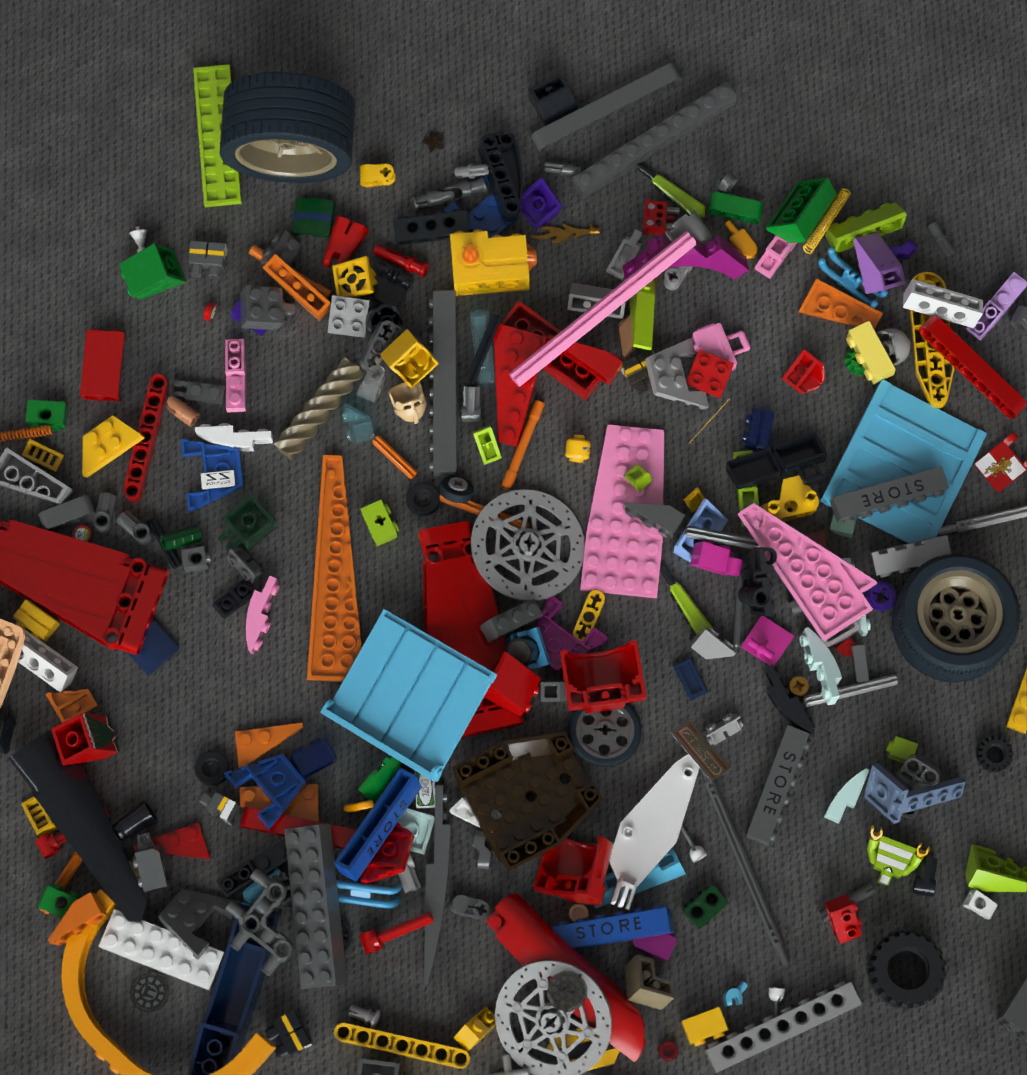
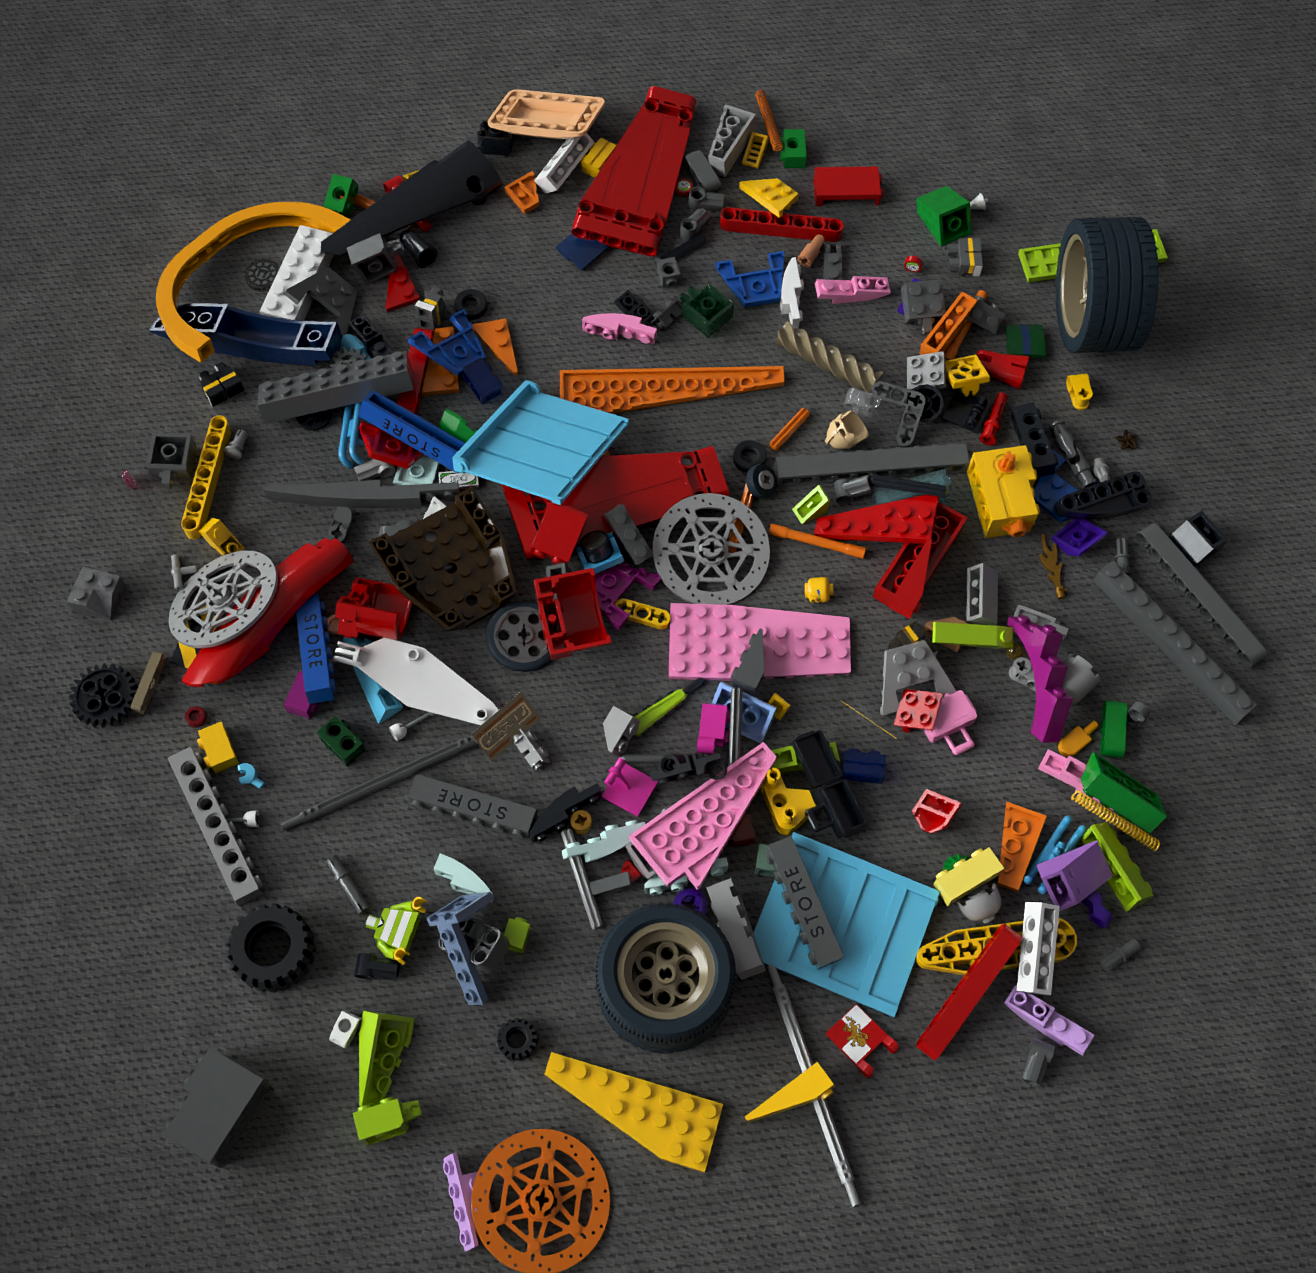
camera: 80 degrees right, 10 degrees down
(82, 913) = (324, 203): orange slope -> none
(85, 739) = (489, 199): red slope -> none
(181, 537) = (687, 257): dark green axle -> none
(217, 479) = (747, 282): white sticker -> none
(260, 911) = (314, 333): dark grey pin -> none
(359, 424) = (817, 393): clear light blue slope -> none
(359, 806) = (433, 416): light orange piece -> none
(371, 515) = (720, 419): lime brick -> none
(375, 940) = (308, 447): red axle -> none
(409, 358) = (889, 421): yellow piece -> none
(567, 991) = (244, 599): clear smoke tile -> none
(602, 308) = (969, 585): bright pink axle -> none
(638, 477) = (793, 647): lime slope -> none
(644, 985) = (254, 683): dark tan brick -> none
(656, 217) = (1088, 647): red piece -> none
(681, 198) = (1119, 667): lime sword -> none
(690, 679) = (583, 715): dark blue tile -> none
(843, 918) = (326, 877): red brick -> none

